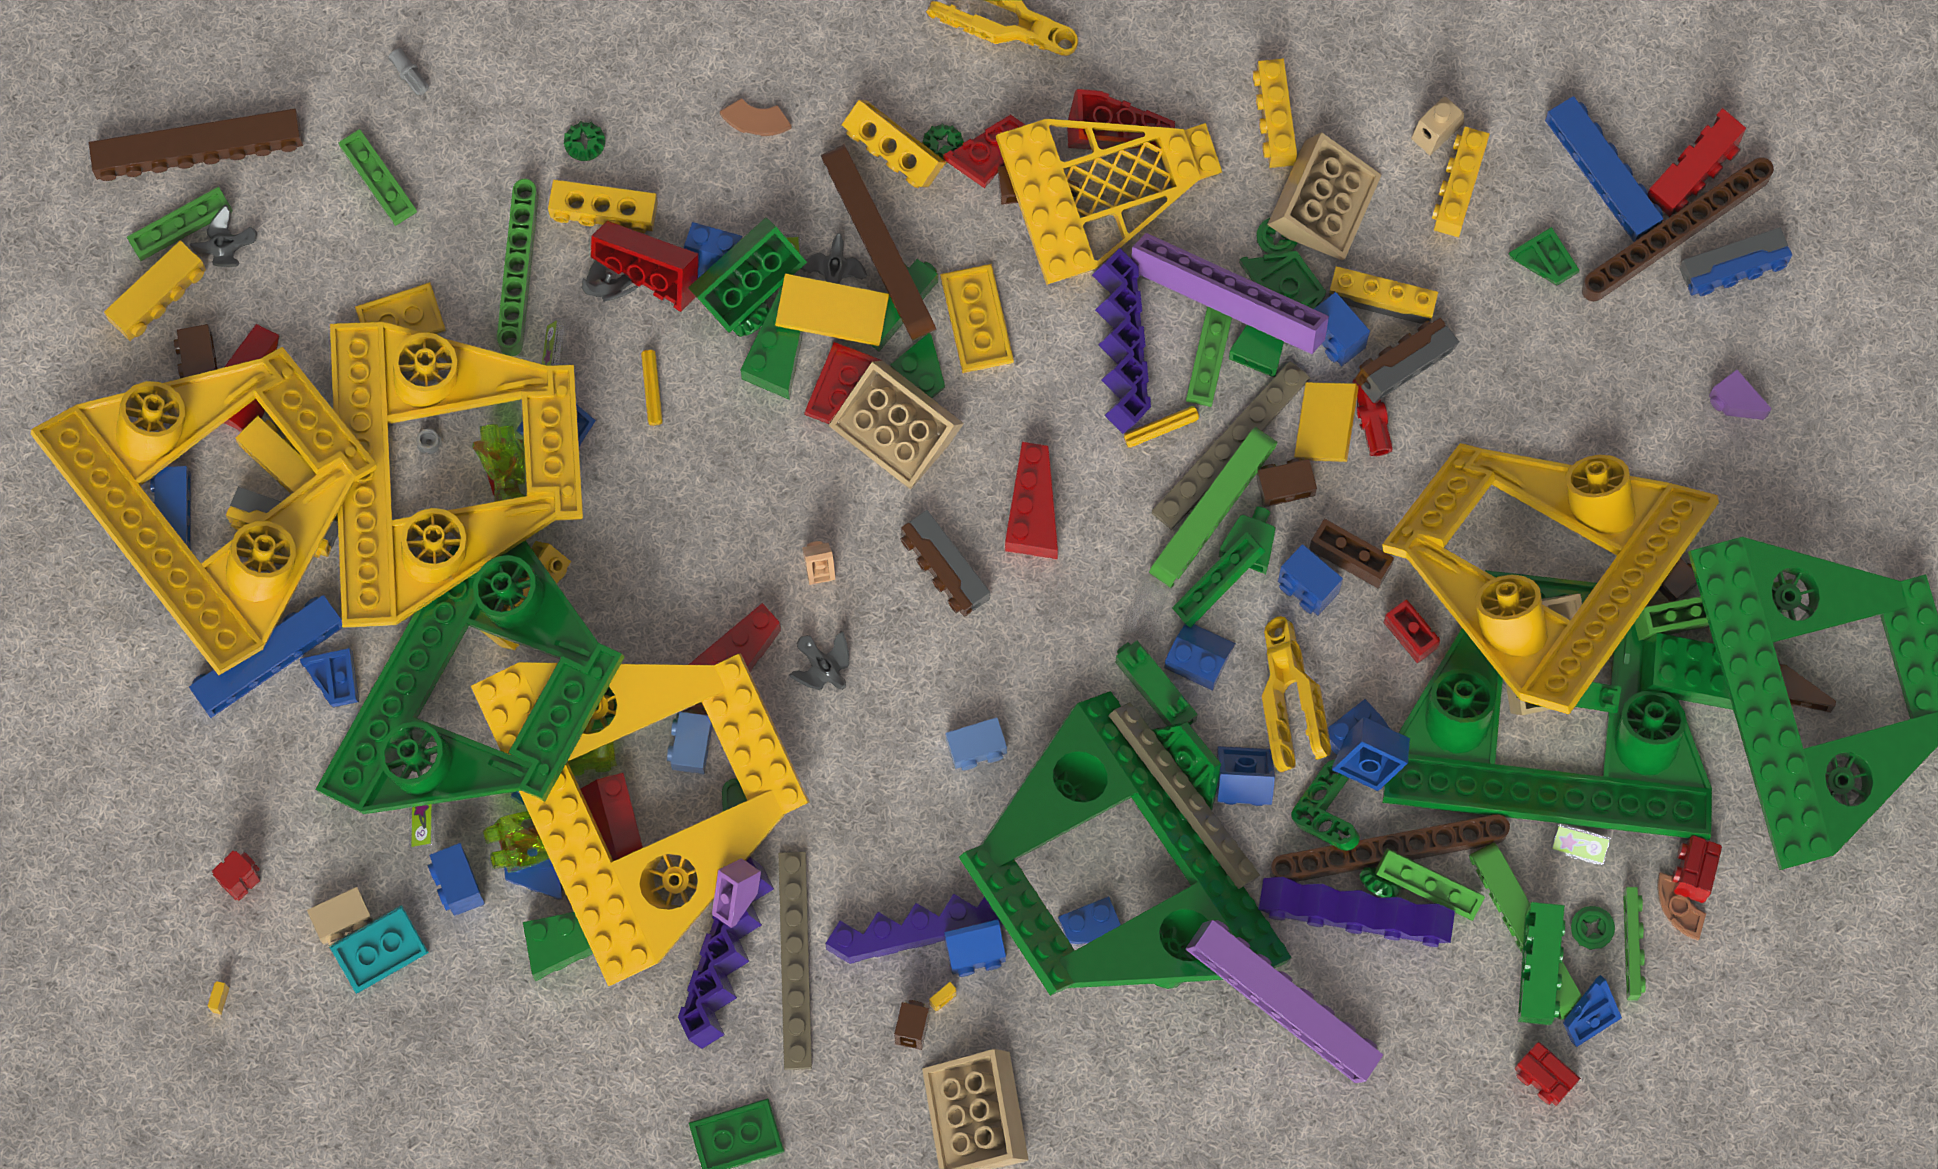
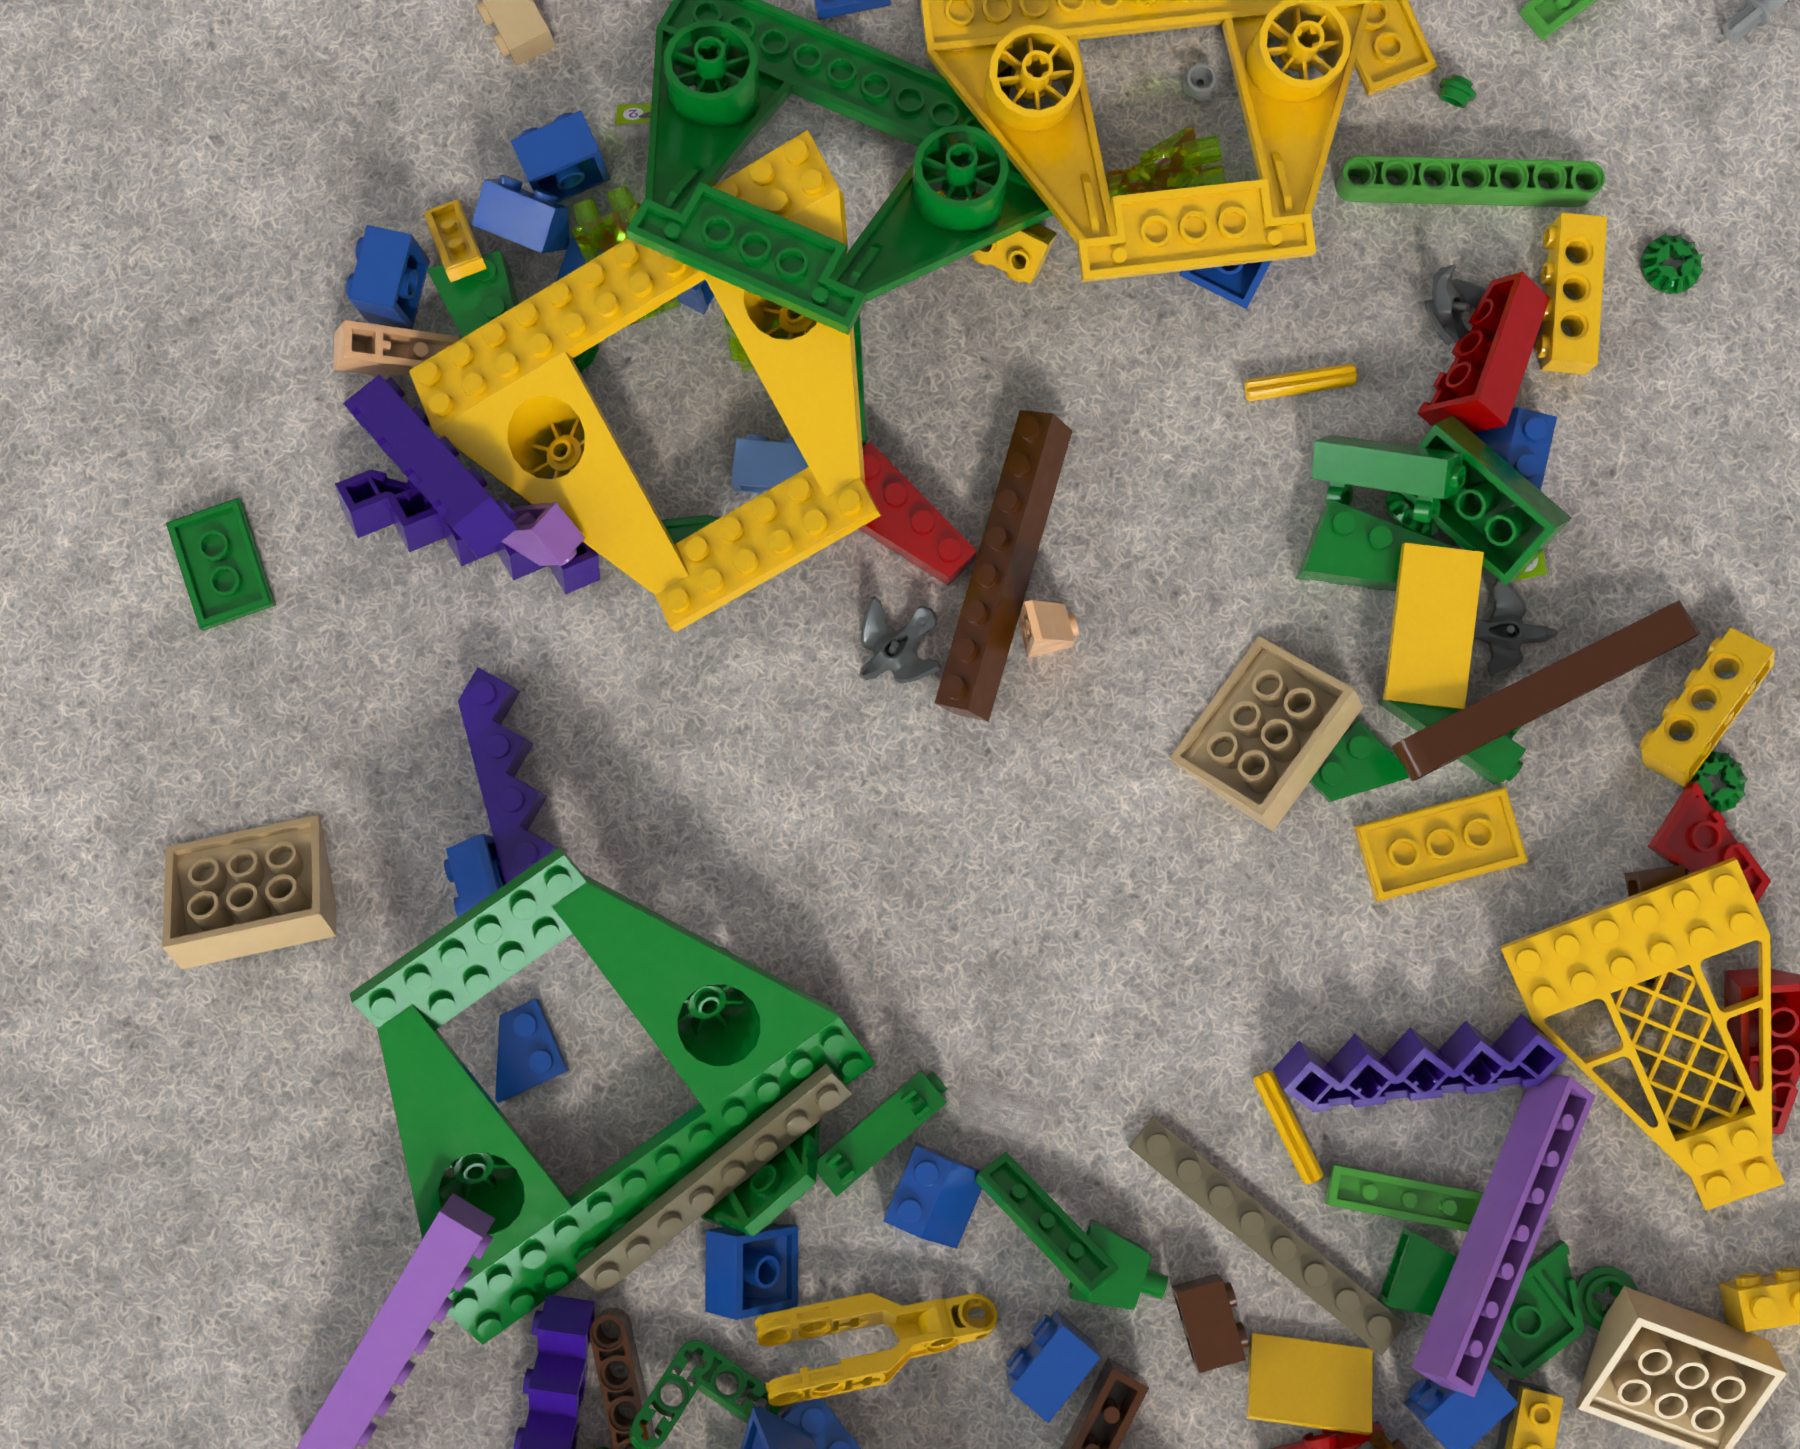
camera: 90 degrees right, 10 degrees up
(378, 949) = (470, 70): teal tile -> none
(450, 270) = (1456, 91): none -> green plate
(500, 903) = (522, 216): none -> slope
(511, 956) = (454, 240): none -> yellow tile
(536, 1004) = (388, 277): none -> blue brick
(554, 343) = (1352, 243): slope -> none
(587, 1008) = (384, 349): none -> light nougat slope
(613, 814) = (657, 370): red wedge -> none
(680, 966) = (432, 465): none -> dark purple brick
(721, 331) = (1388, 467): none -> green brick
(754, 120) = (1726, 503): nougat tile -> none
(771, 587) = (1004, 565): none -> reddish brown brick
(795, 961) = (468, 630): dark tan plate -> none
(836, 382) = (1327, 643): red wing -> none
(912, 1024) = (363, 795): reddish brown brick -> none
(942, 997) = (414, 838): yellow tile -> none
(945, 564) = (1055, 813): piece -> none
(976, 744) = (784, 870): medium blue brick -> none
(1032, 513) = (1141, 938): red wedge -> none
(1213, 507) = (1164, 1213): bright green beam -> none

